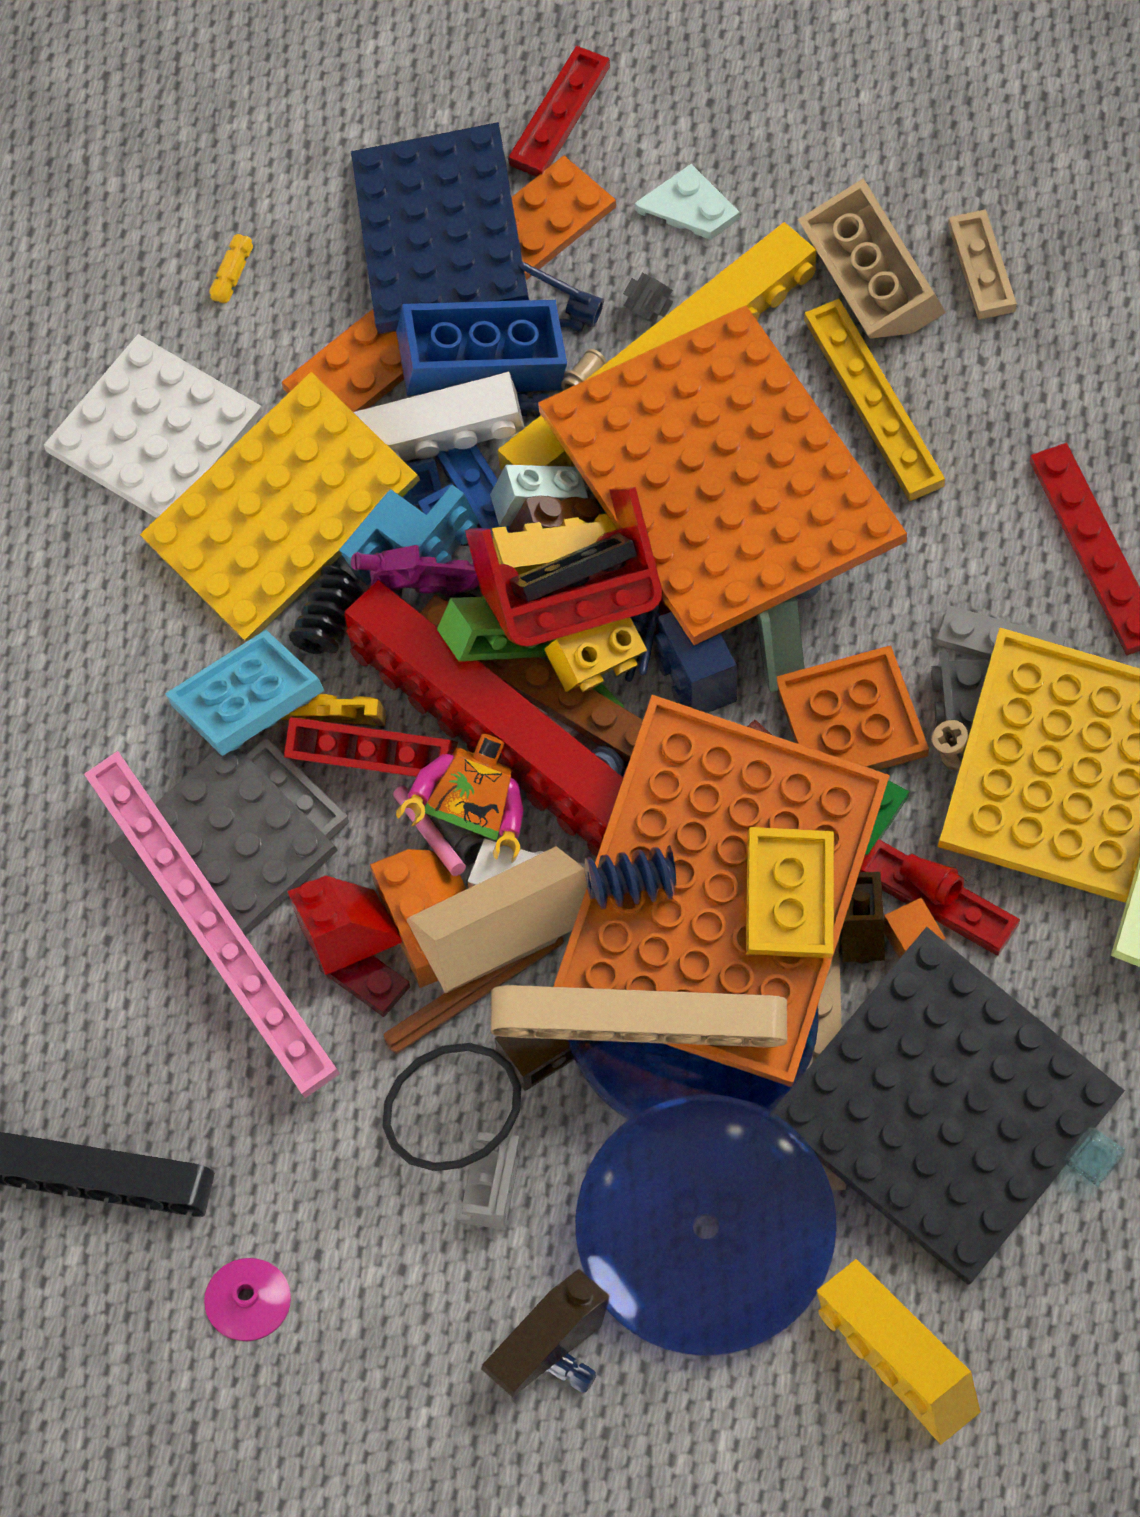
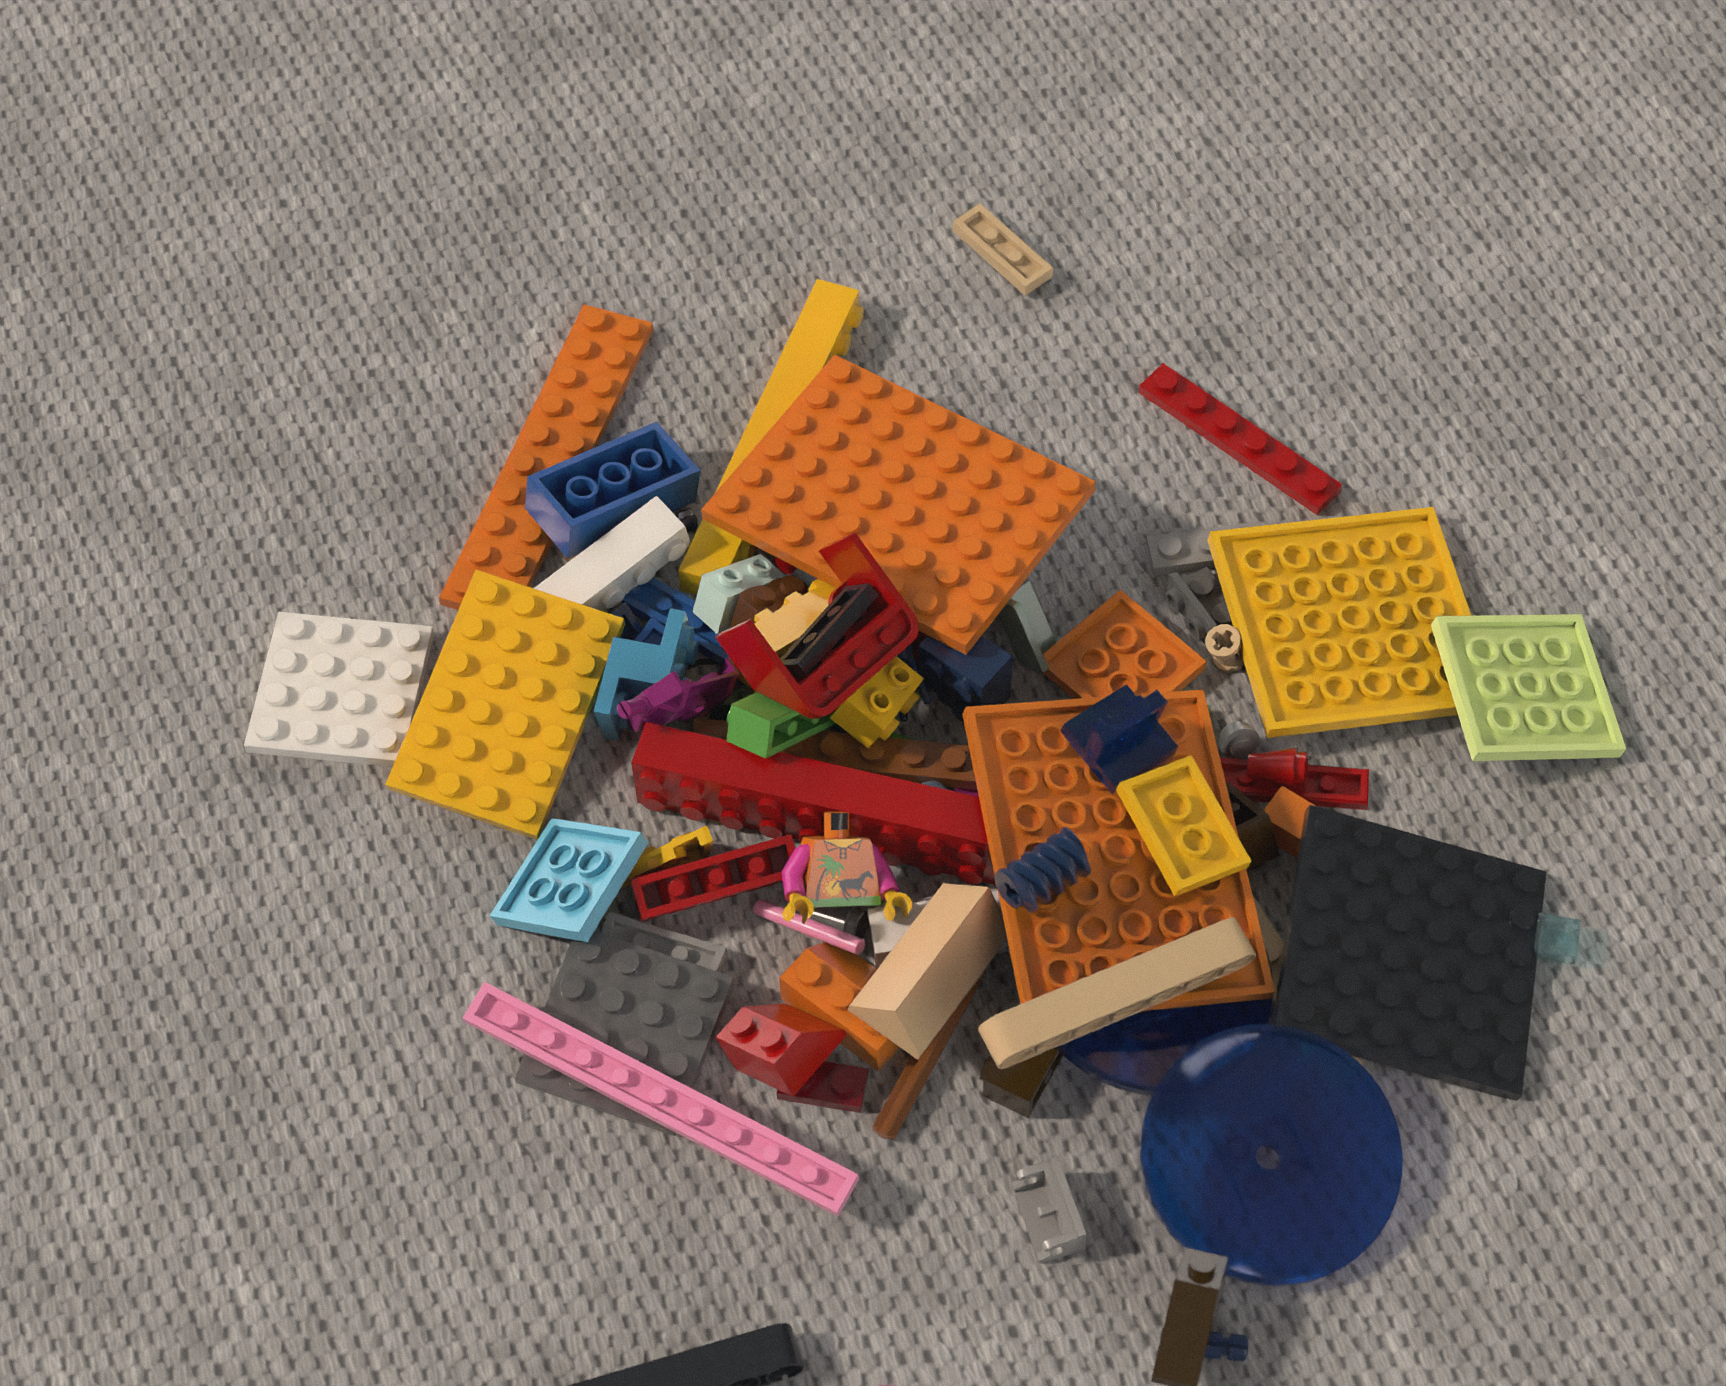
camera: 30 degrees left, 5 degrees down
(231, 268) = (332, 520): yellow axle -> none
(325, 612) = (601, 777): black piece -> none
(438, 222) = (506, 403): dark blue plate -> none
(456, 1164) = (1023, 1201): black piece -> none
(559, 111) = (557, 270): red plate -> none
(581, 305) = (676, 420): dark blue plant -> none
(584, 368) = (710, 475): tan pin -> none
(648, 297) = (732, 390): dark grey gear -> none
(690, 203) = (719, 301): light aqua wing -> none
(780, 785) = (1121, 736): none -> clear blue bracket
(871, 263) = (913, 281): tan slope -> none
(874, 400) = (978, 394): yellow plate -> none
(900, 1350) = (1503, 1181): yellow wedge -> none
(914, 836) = (1238, 740): none -> light grey plate

